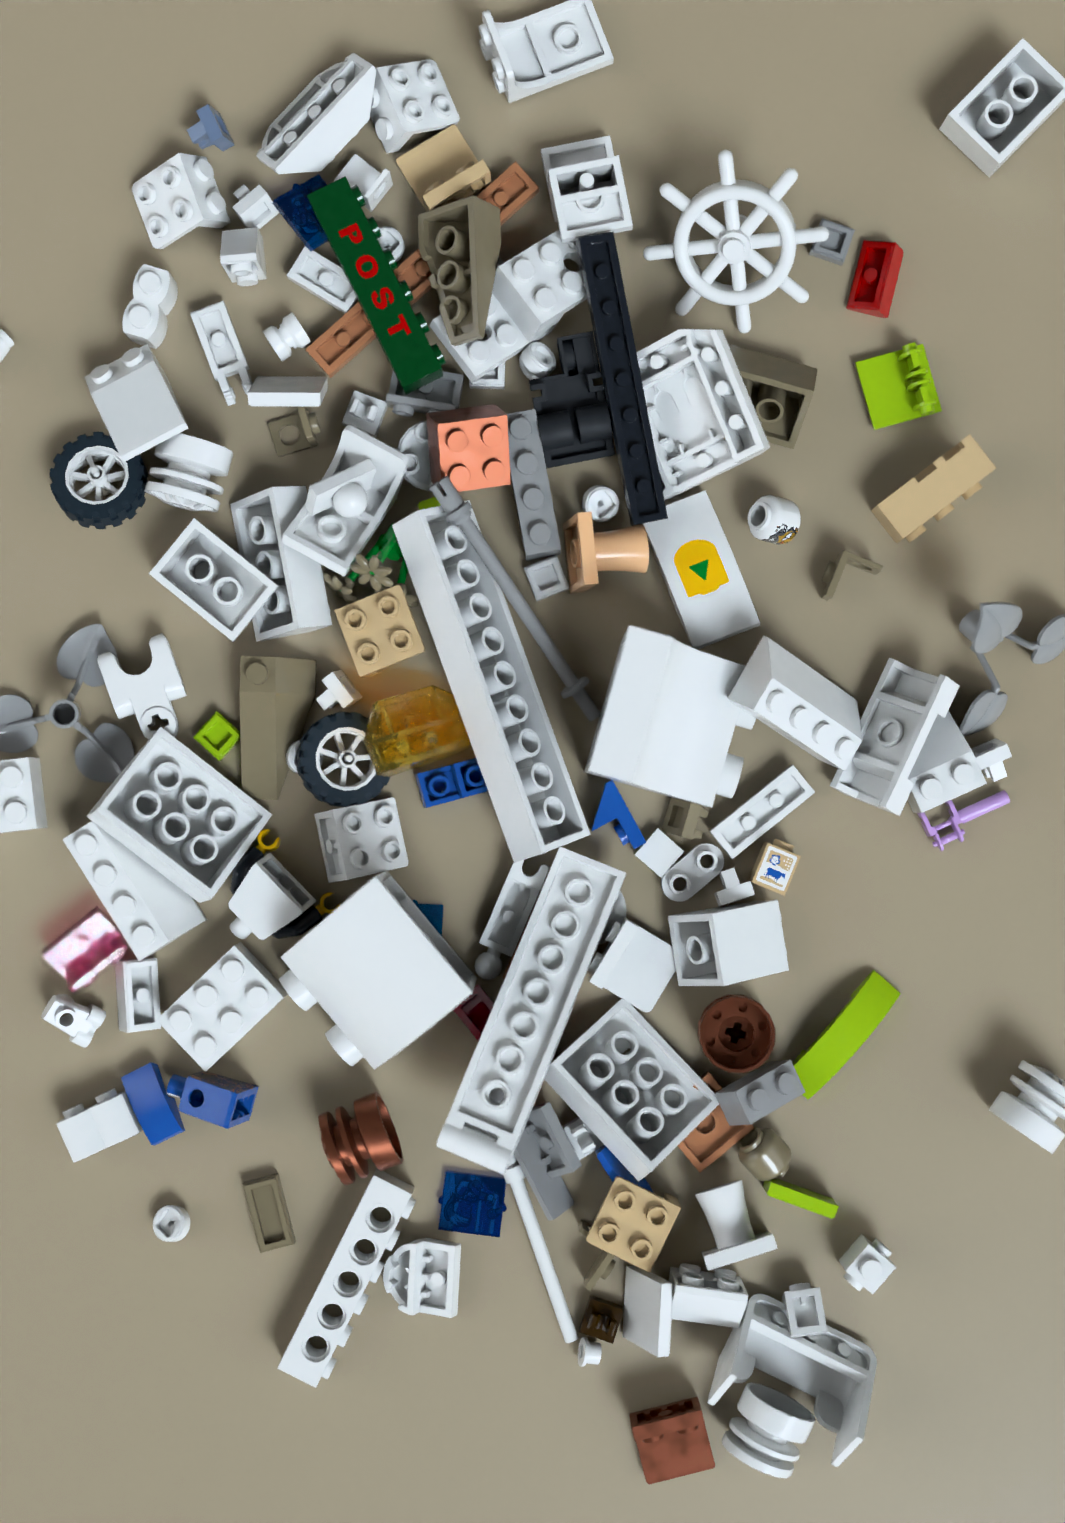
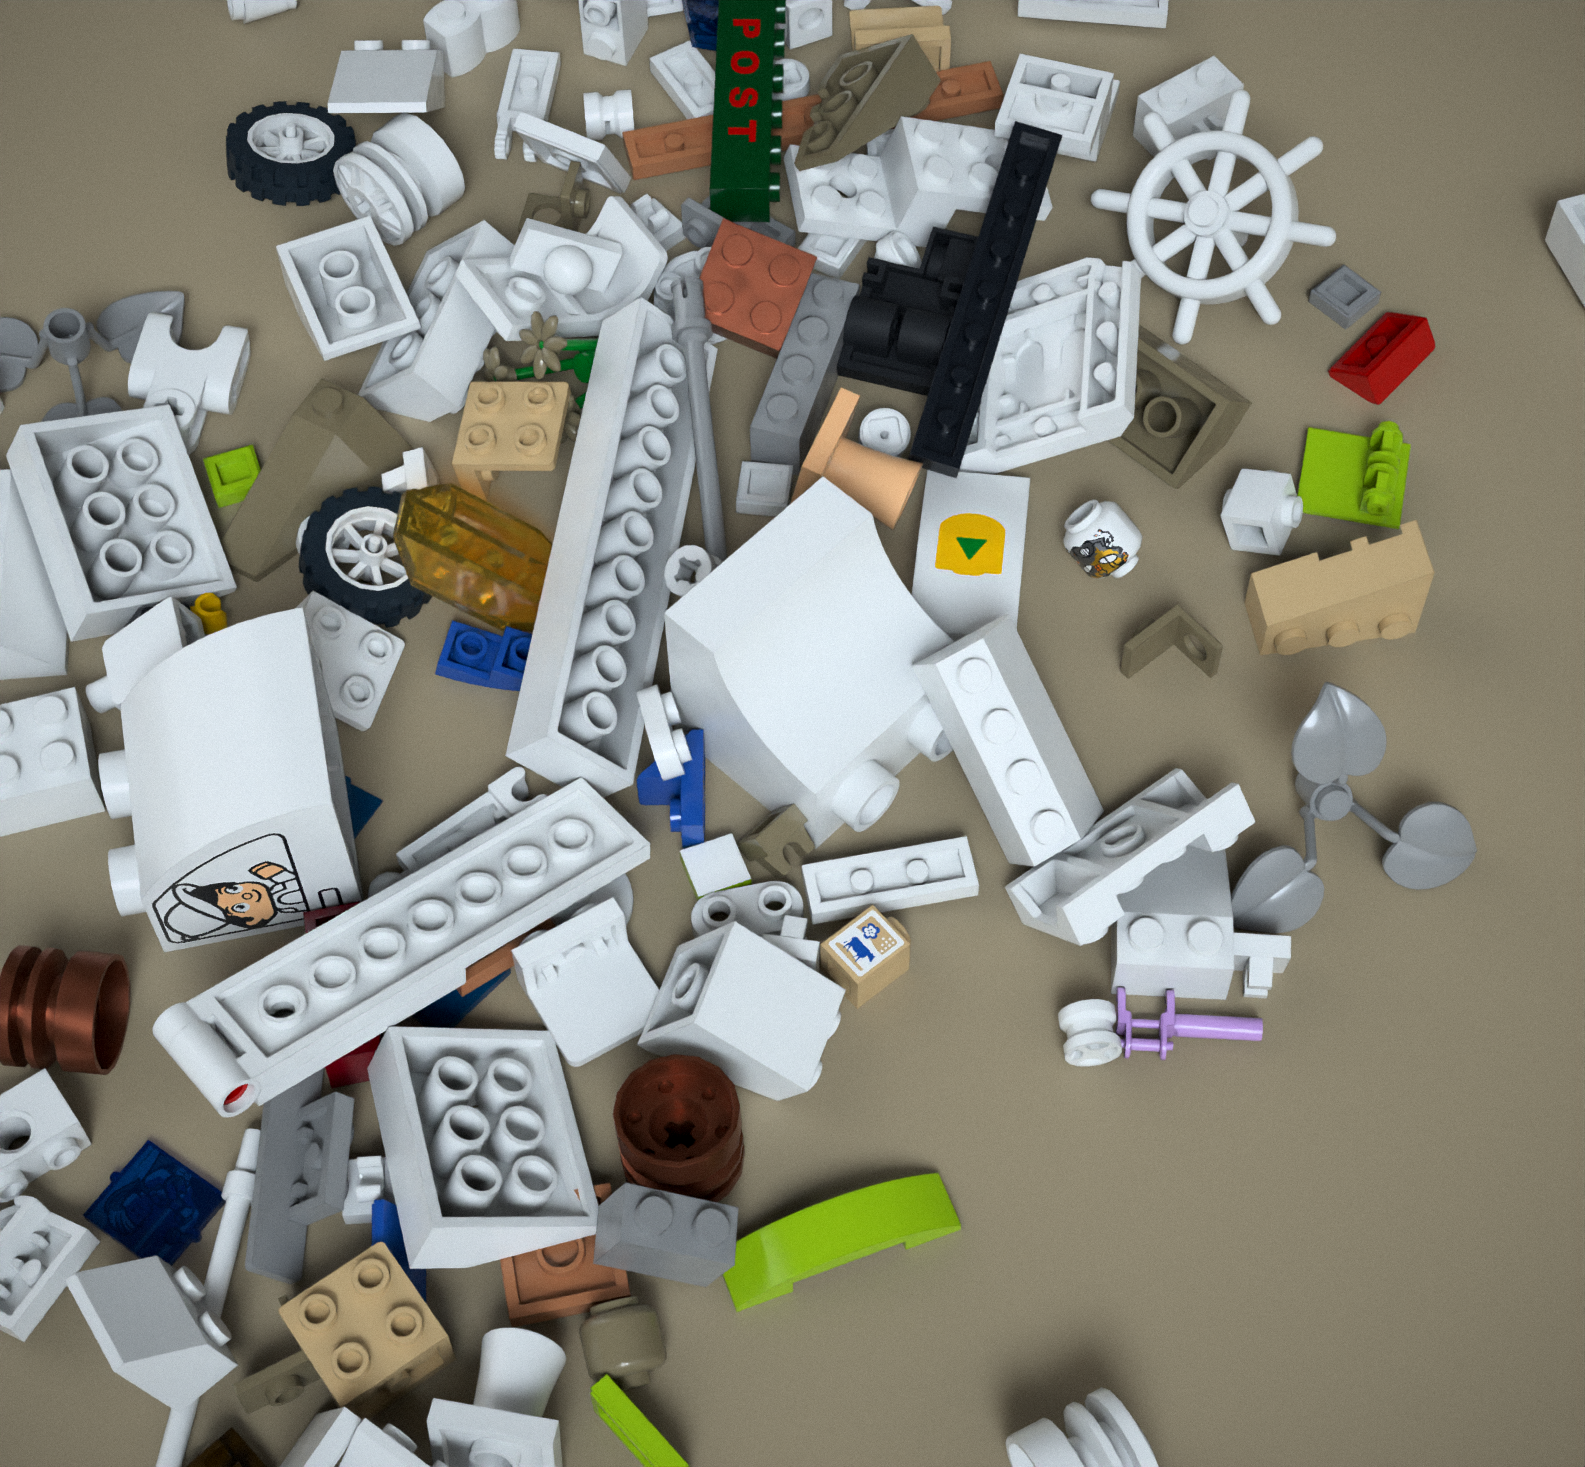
camera: 30 degrees right, 30 degrees down
(527, 1283) = (155, 1328): none -> white slope
(558, 671) = (683, 563): none -> white wheel
(606, 812) = (668, 746): none -> white plate
(669, 139) = (1188, 102): none -> white brick
(858, 447) = (1261, 511): none -> white brick
(918, 851) = (1089, 1032): none -> white wheel

